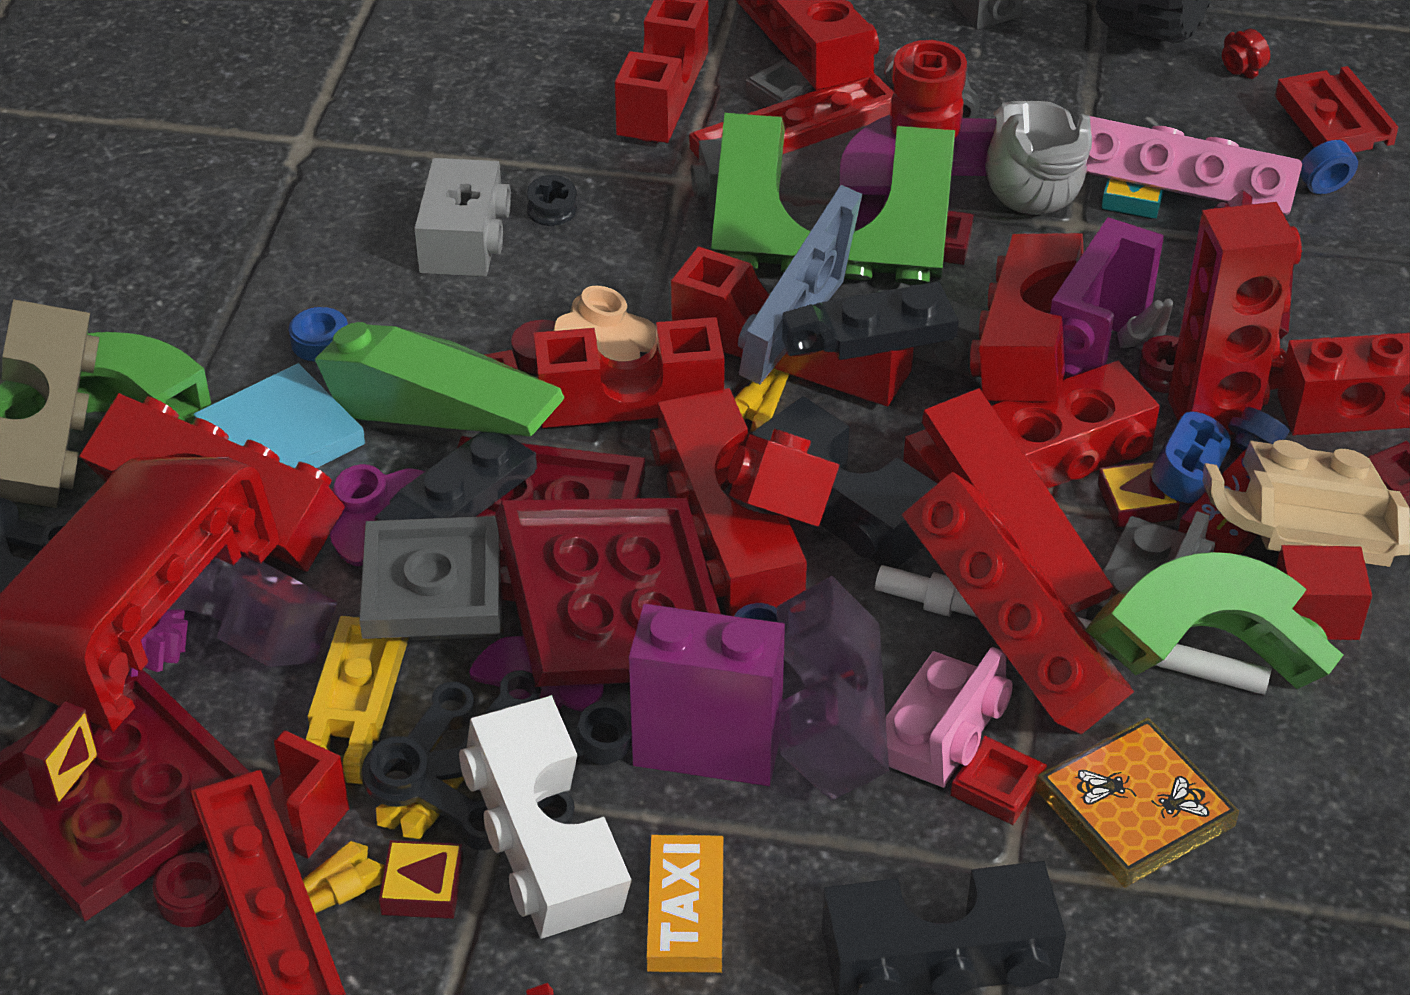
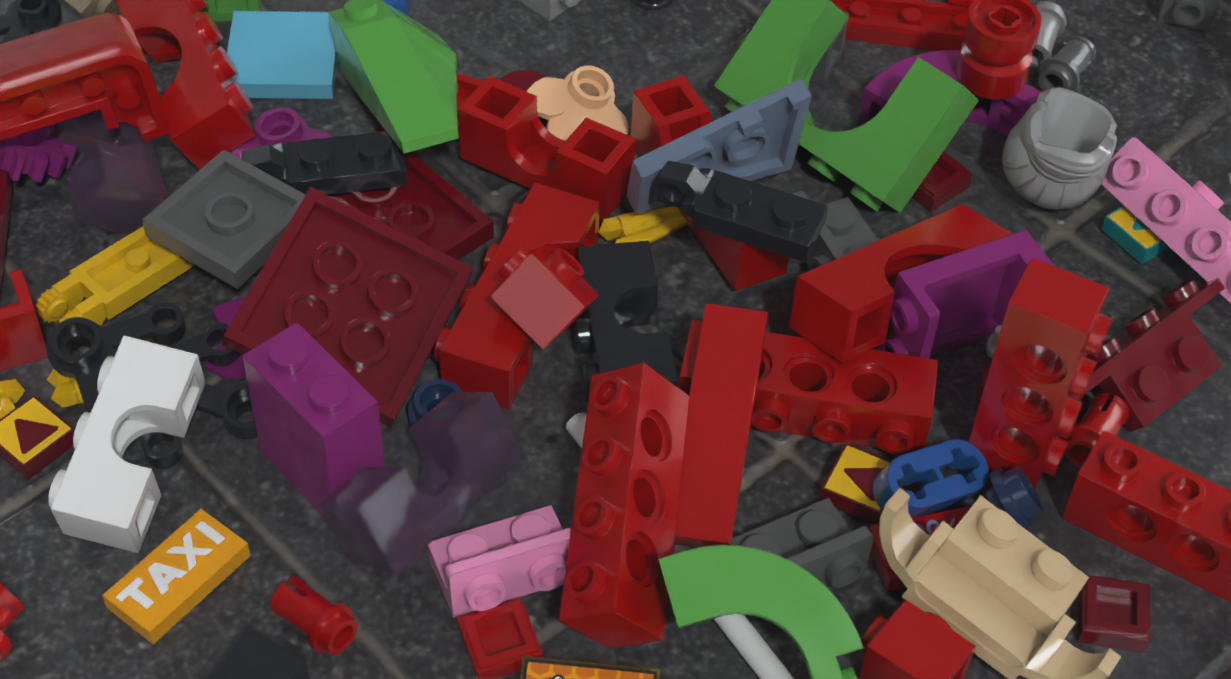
camera: 35 degrees right, 5 degrees up
(841, 854) = (326, 625): none -> red pin

